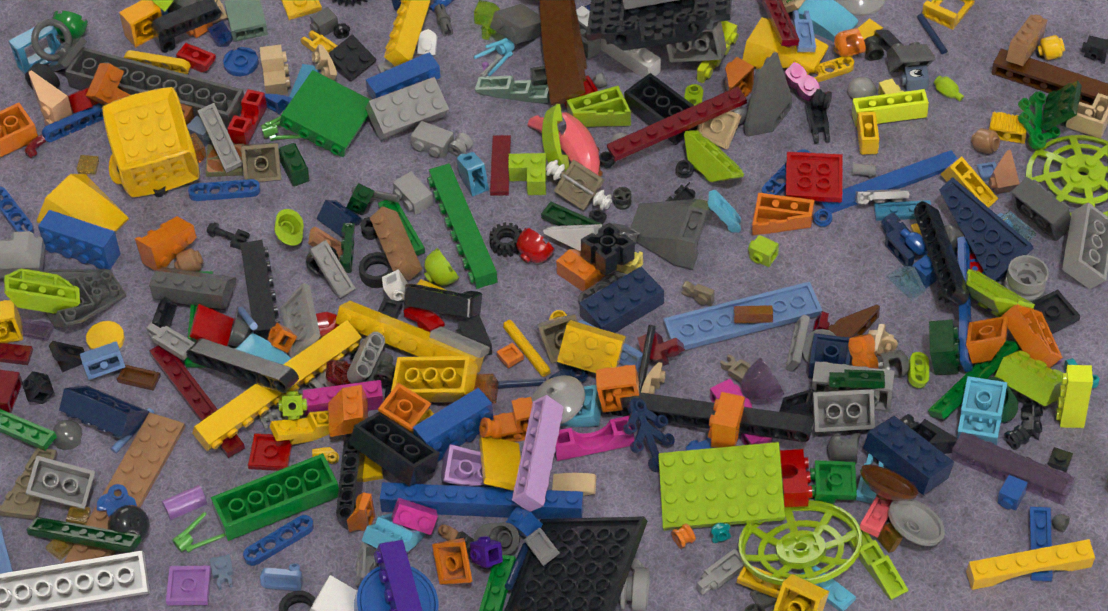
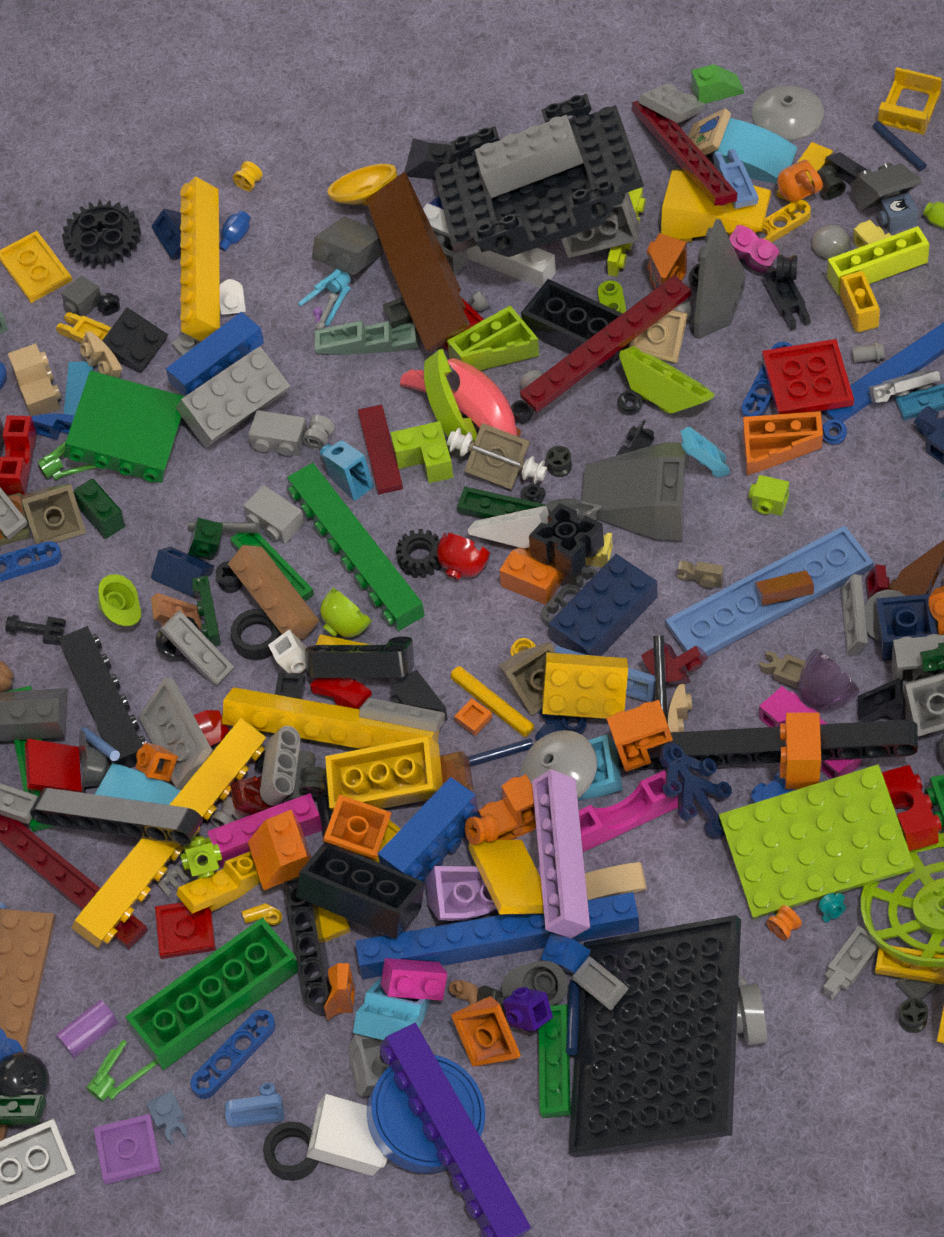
camera: 10 degrees left, 5 degrees up
(443, 20) = (243, 260): dark grey pin -> none
(483, 16) = (299, 242): clear neon green brick -> none

